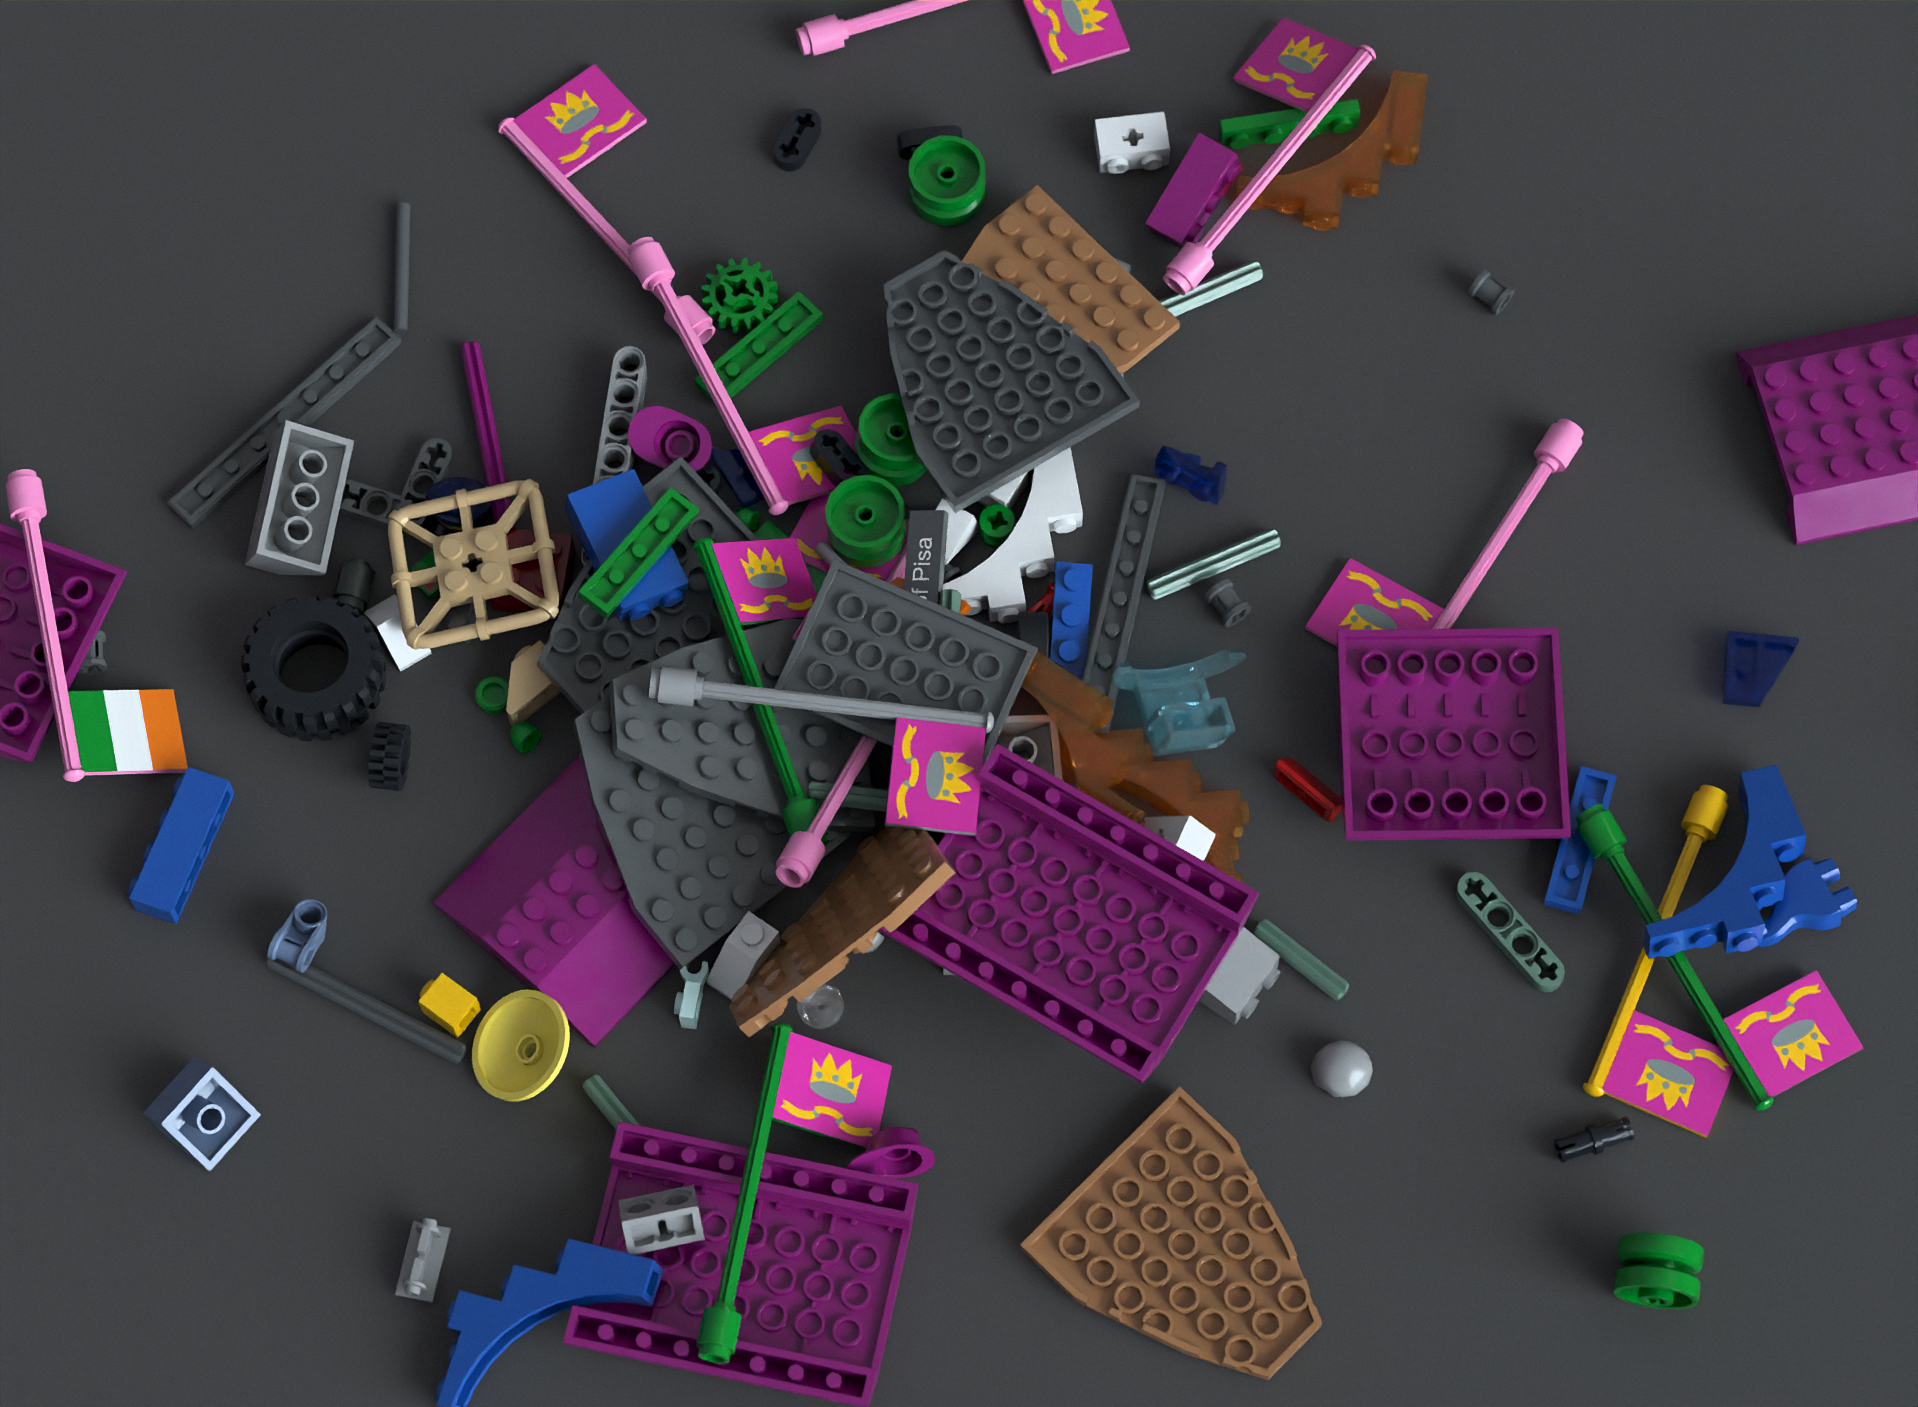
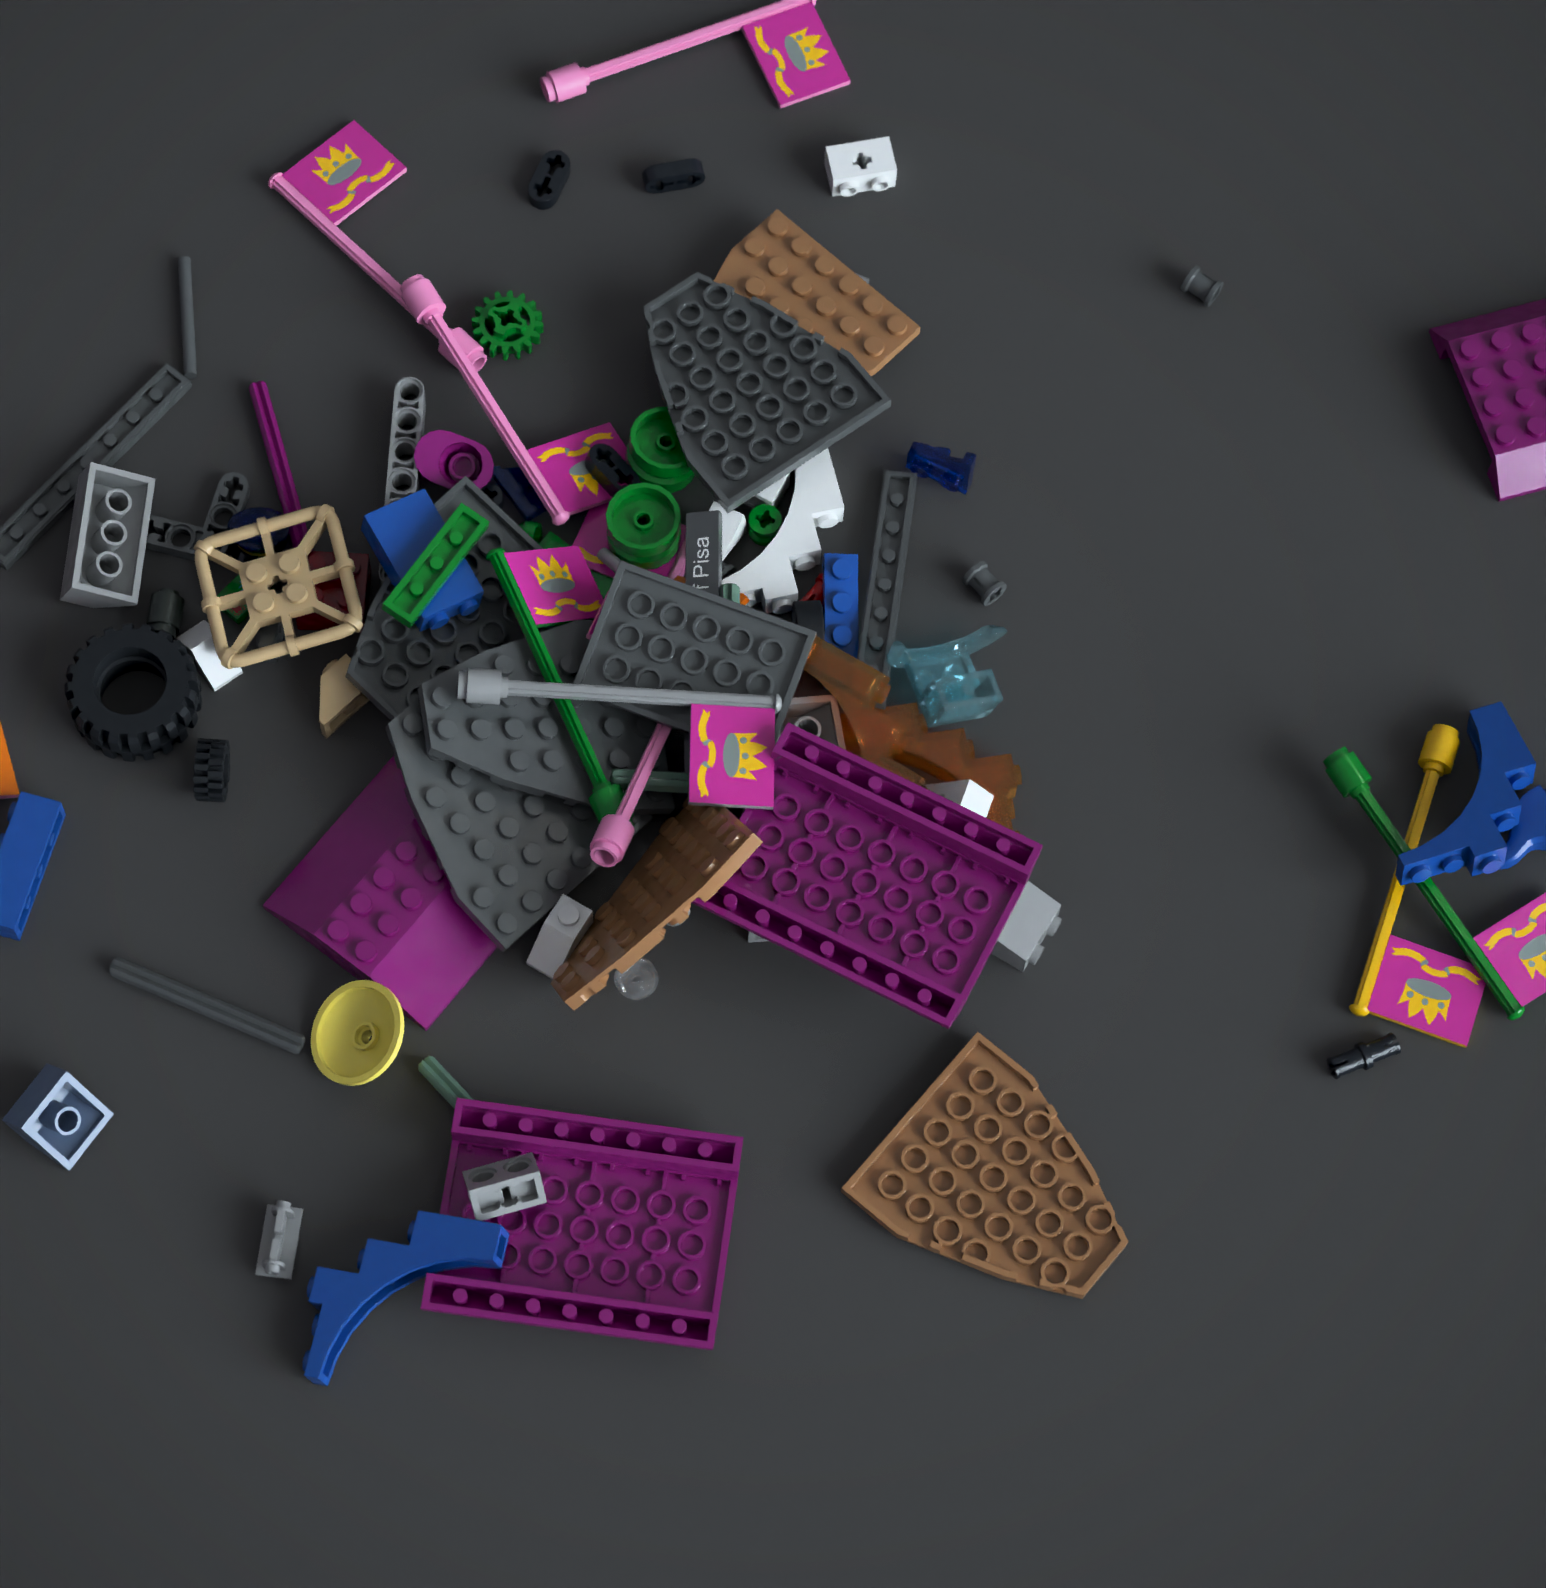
camera: 10 degrees left, 0 degrees up
(298, 940) = (140, 942): sand blue piece -> none
(448, 1004) = (285, 999): yellow brick -> none
(492, 695) = (304, 708): green tile -> none
(524, 737) = (337, 745): green hinge -> none
(689, 1002) = (512, 983): light aqua plate -> none
(764, 344) = (534, 369): green plate -> none
(811, 1090) = (636, 1057): flag -> none
(894, 1154) = (718, 1111): magenta piece -> none
(947, 180) = (692, 209): green wheel -> none
(1194, 191) = (922, 208): magenta wedge -> none
(1213, 563) = (967, 548): sand green axle -> none
(1214, 288) = (947, 295): axle -> none
(1277, 125) = (1004, 142): green plate -> none
(1298, 70) = (1010, 93): flag -> none
(1301, 959) = (1081, 908): sand green axle -> none
(1308, 788) = (1072, 750): red slope -> none
(1341, 1068) = (1125, 1005): light grey hair -> none
(1357, 169) = (1069, 182): clear orange arch -> none
(1373, 602) = (1146, 598): flag -> none
(1451, 734) = (1202, 691): magenta slope -> none
(1514, 928) = (1274, 866): sand green beam -> none
(1574, 859) = (1322, 797): blue plate -> none
(1658, 1270) = (1435, 1172): green wheel -> none
(1753, 665) = (1471, 613): clear blue wing -> none

